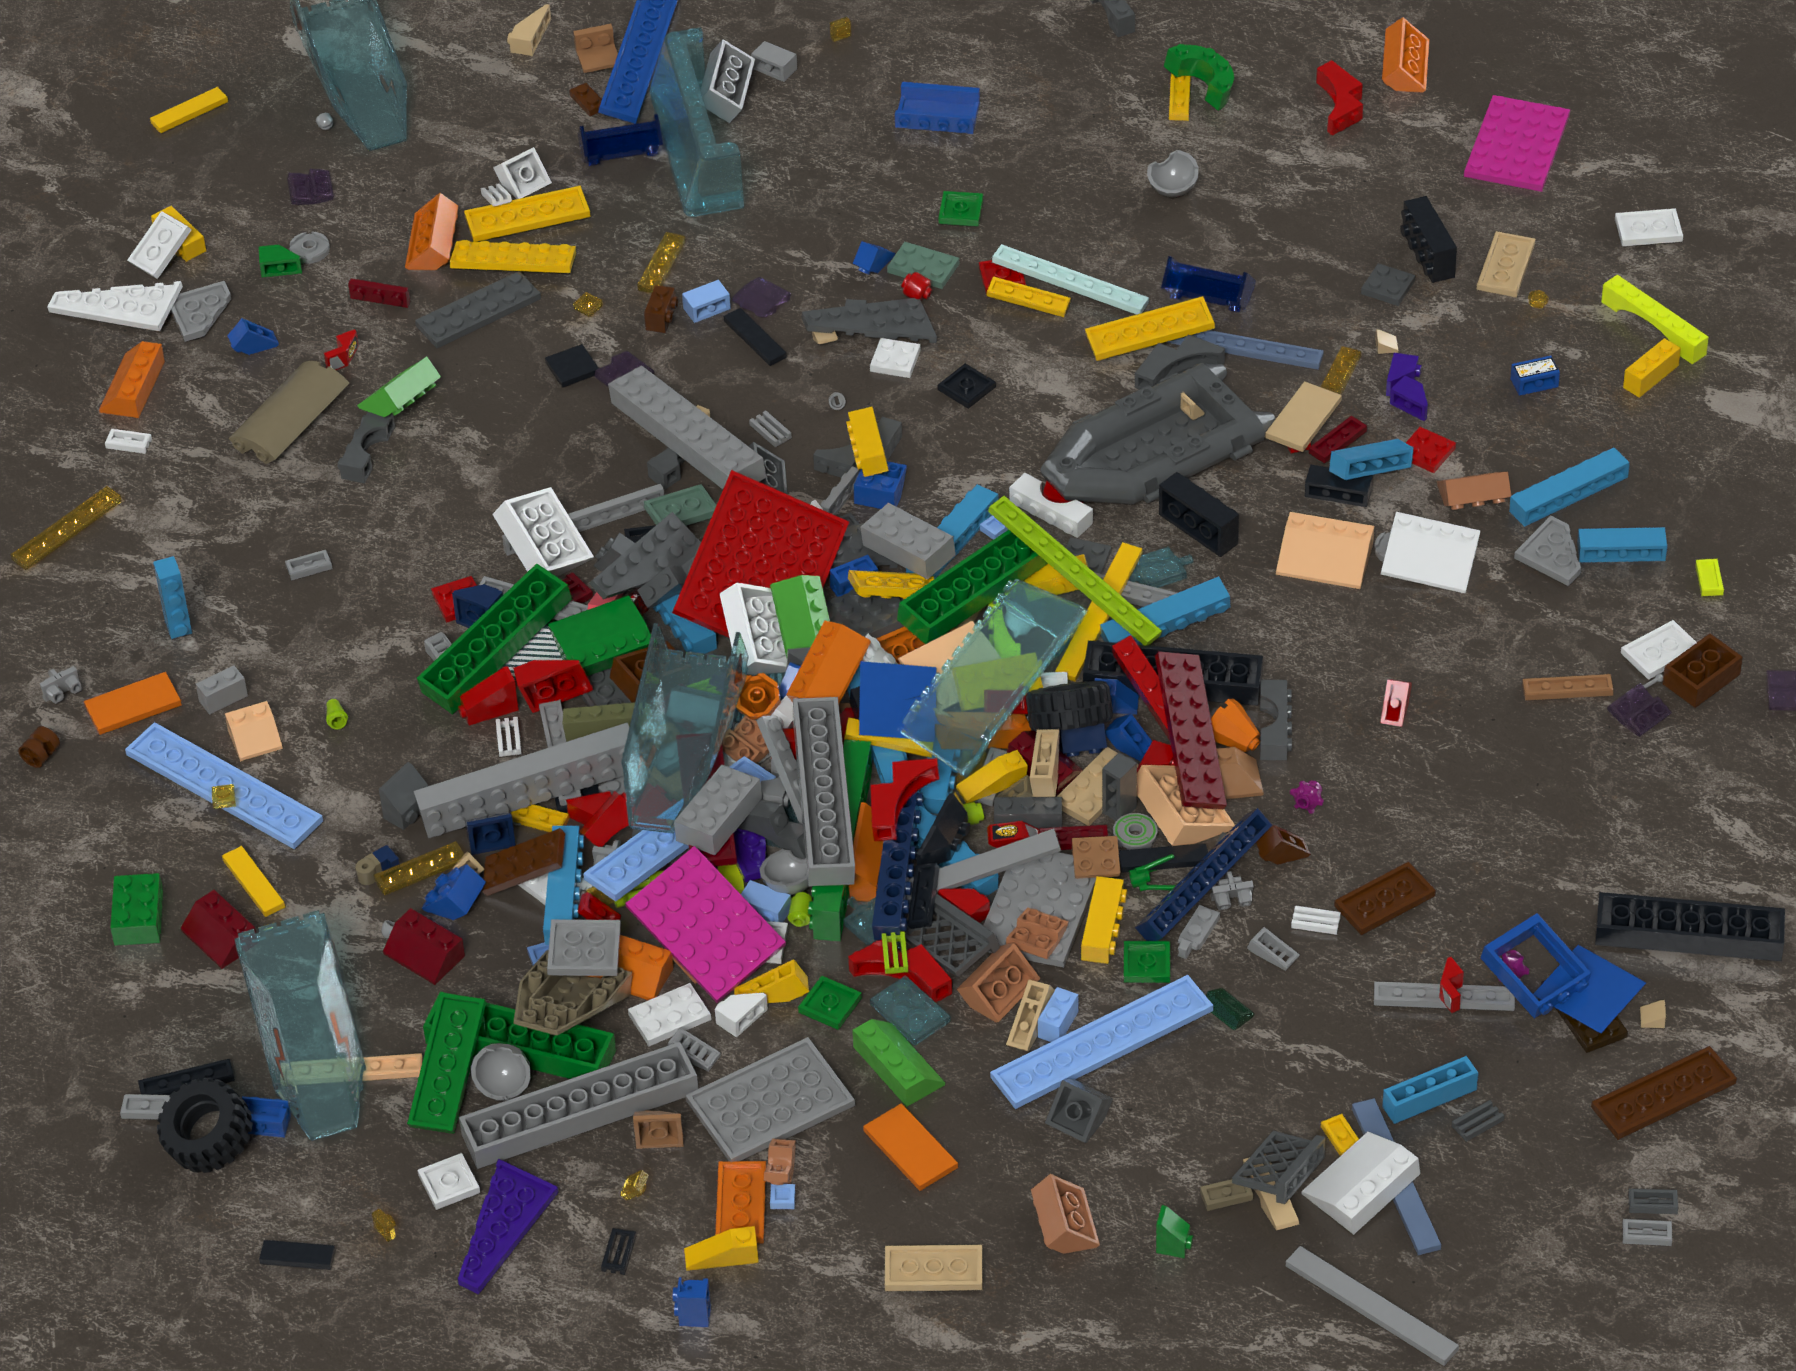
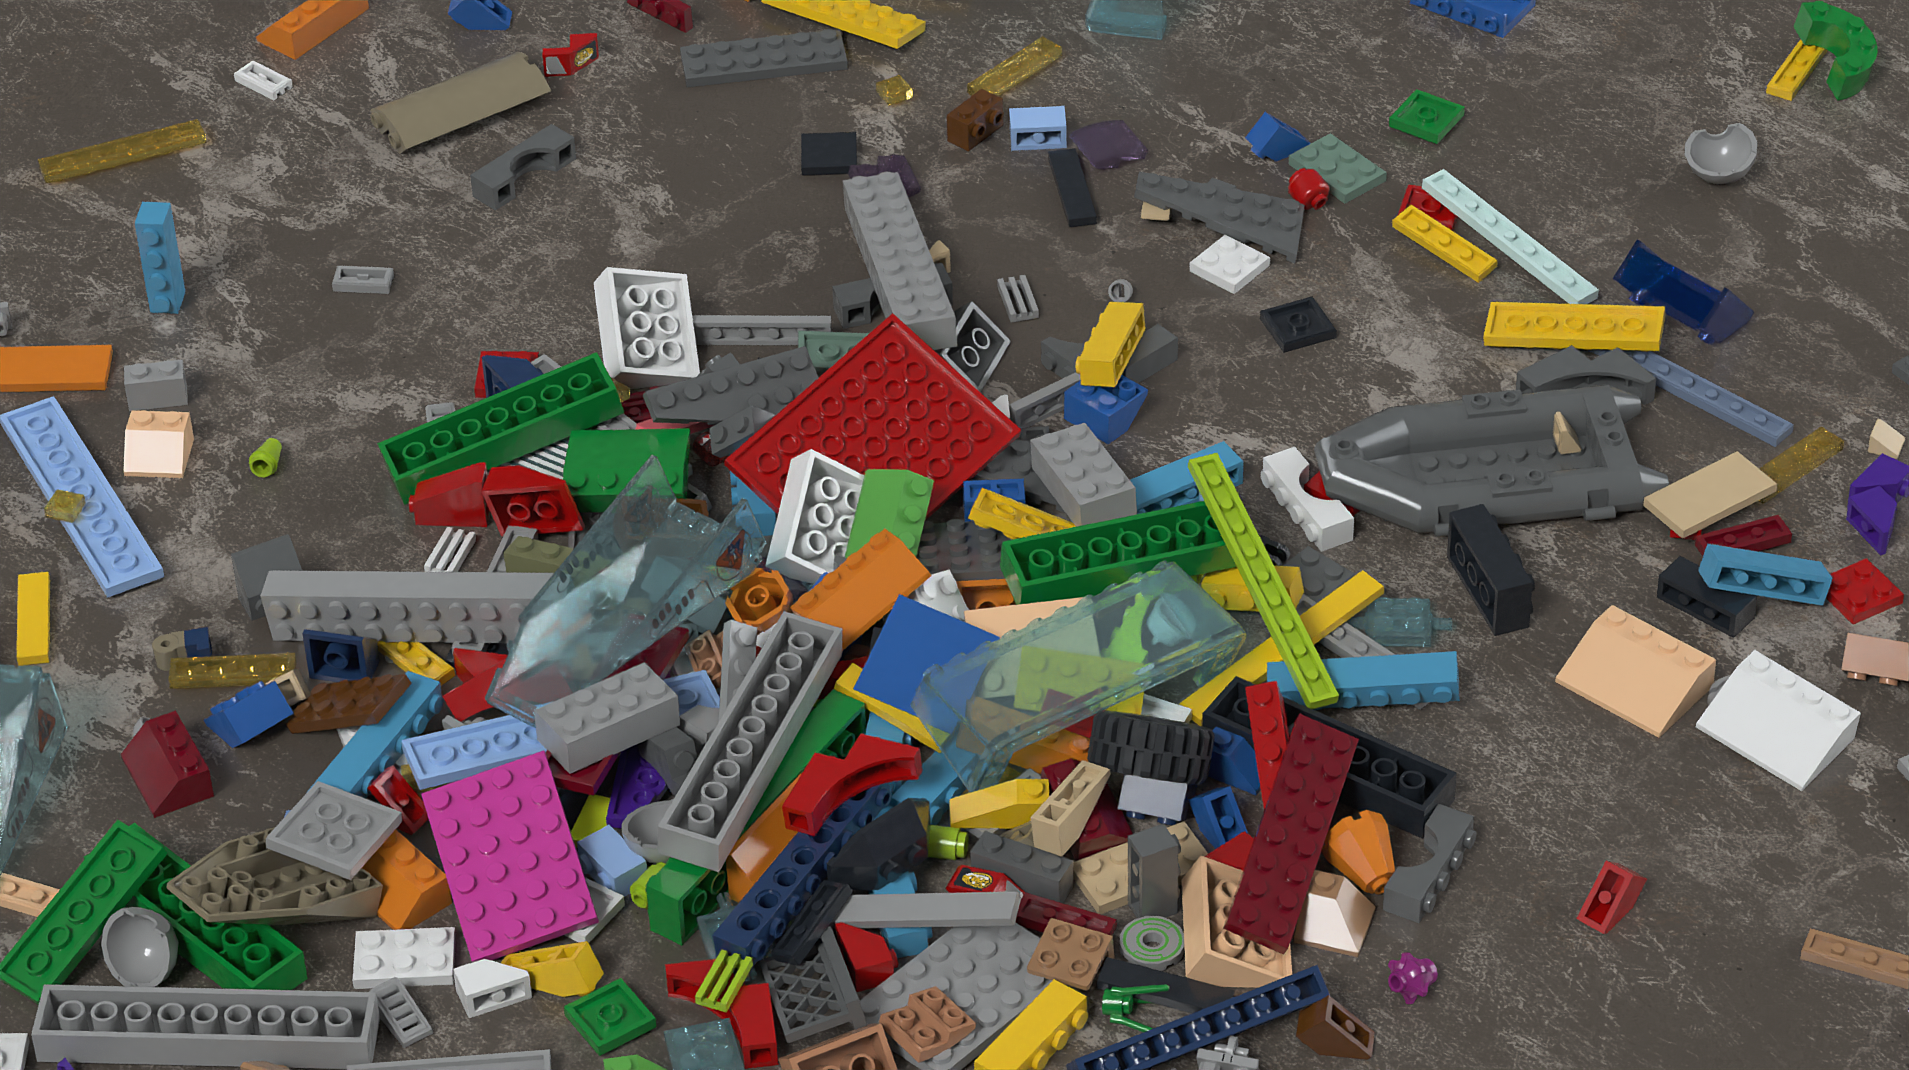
camera: 25 degrees right, 5 degrees down
(402, 389) = (601, 113): bright green slope -> none

